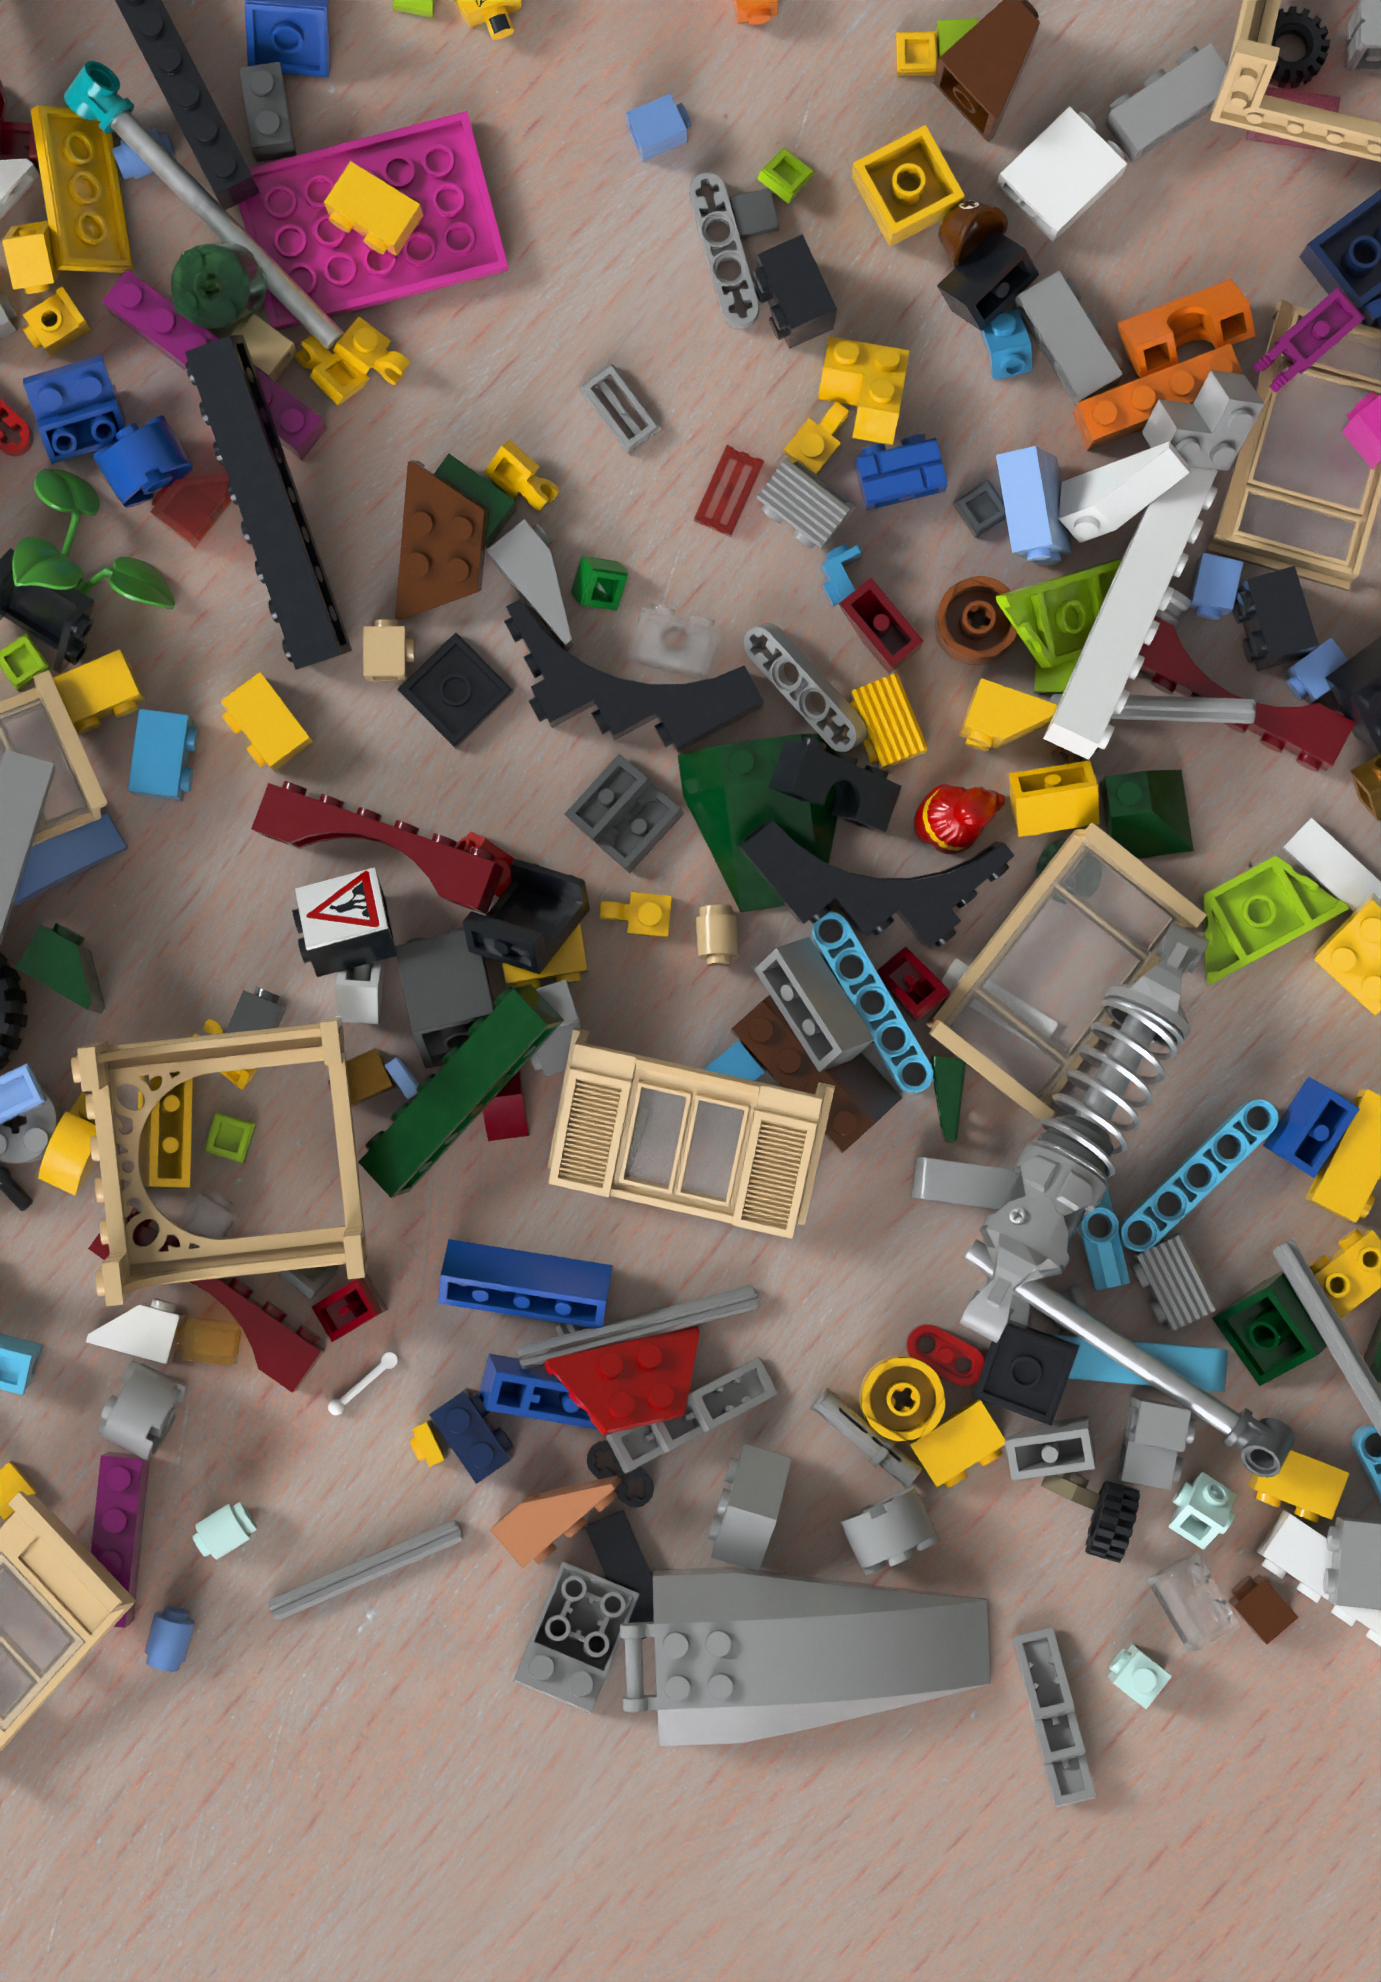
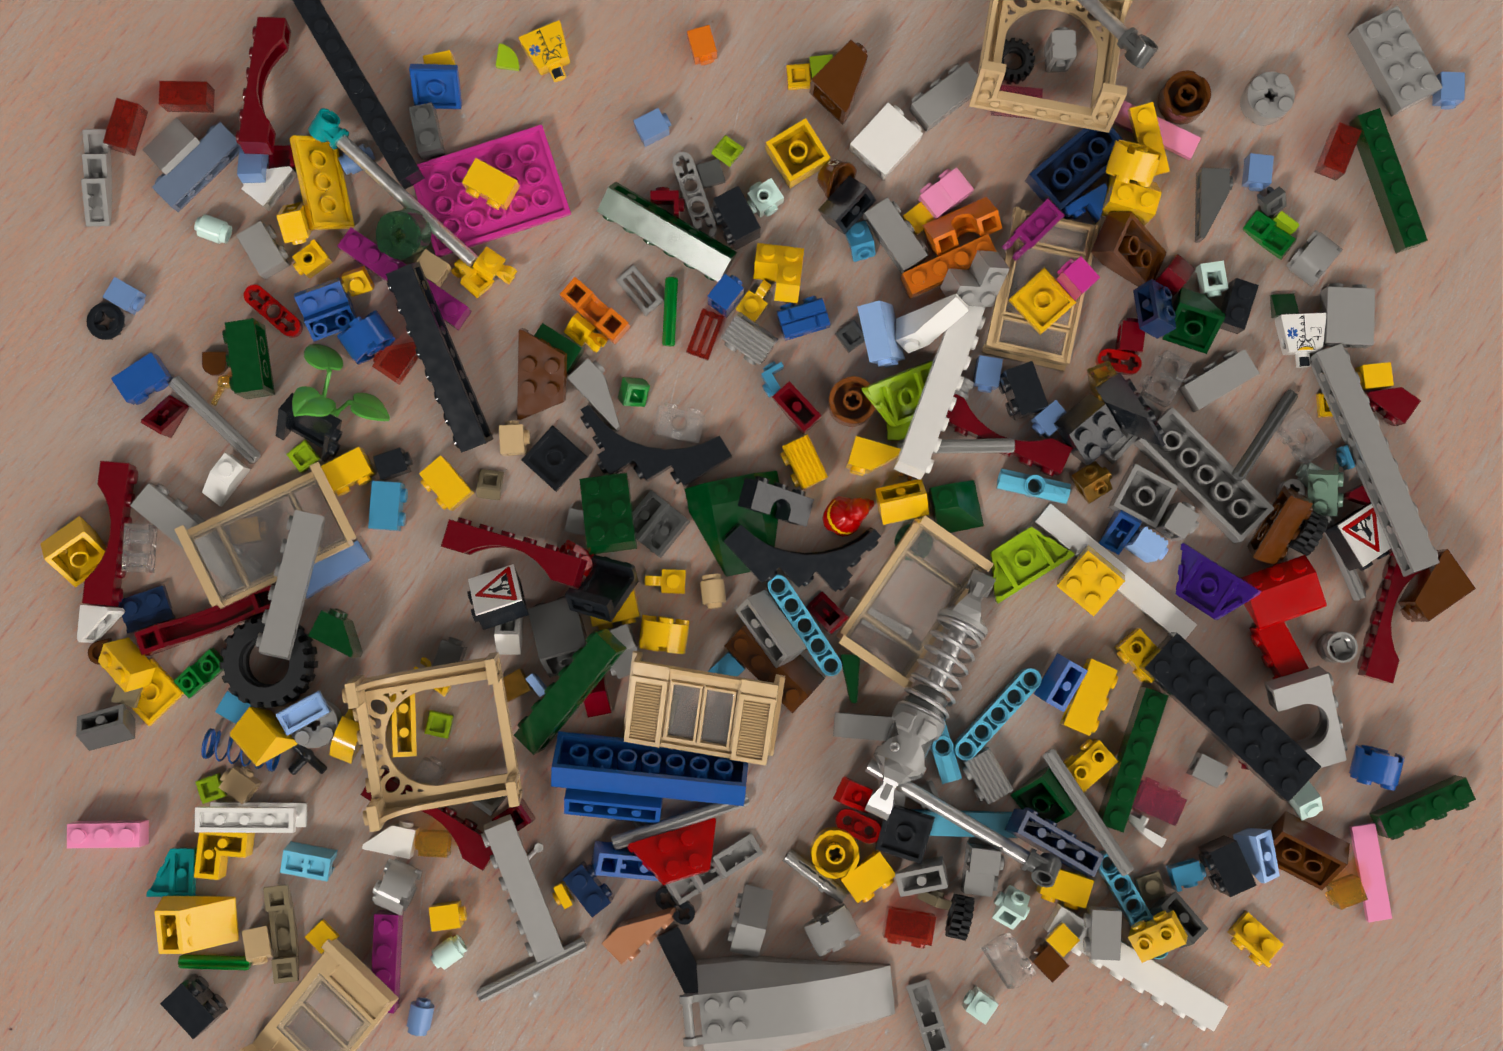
camera: 10 degrees left, 0 degrees up
(132, 364) = (357, 281): none -> yellow plate
(176, 682) = (393, 463): none -> black brick
(226, 1467) = (447, 915): none -> yellow brick
(341, 729) = (490, 484): none -> dark tan slope
(360, 1426) = (523, 888): none -> light grey brick
(491, 802) = (575, 522): none -> light grey tile
(524, 423) = (595, 311): none -> orange arch
(543, 789) = (608, 513): none -> dark green brick
(576, 1637) = (654, 1002): light grey slope -> none
(584, 1236) = (644, 770): none -> blue brick
(628, 1003) = (663, 634): none -> yellow brick
(670, 448) = (670, 311): none -> green axle
(672, 309) = (666, 232): none -> brick
(675, 249) = (665, 196): none -> dark red bracket
(769, 423) = (726, 294): none -> blue brick
(800, 692) = (757, 442): light grey beam -> none
(858, 258) = (768, 191): none -> light aqua brick
(939, 1299) = (853, 794): none -> red slope
(1023, 1533) = (909, 926): none -> clear red brick
(1110, 308) = (918, 217): none -> yellow tile
(1160, 270) = (945, 193): none -> bright pink brick
(1273, 1393) = (1050, 839): none -> dark blue brick
(1288, 1570) = (1062, 939): none -> yellow tile
(1308, 794) = (1048, 489): none -> medium azure piece
(1317, 465) = (1042, 301): none -> yellow tile

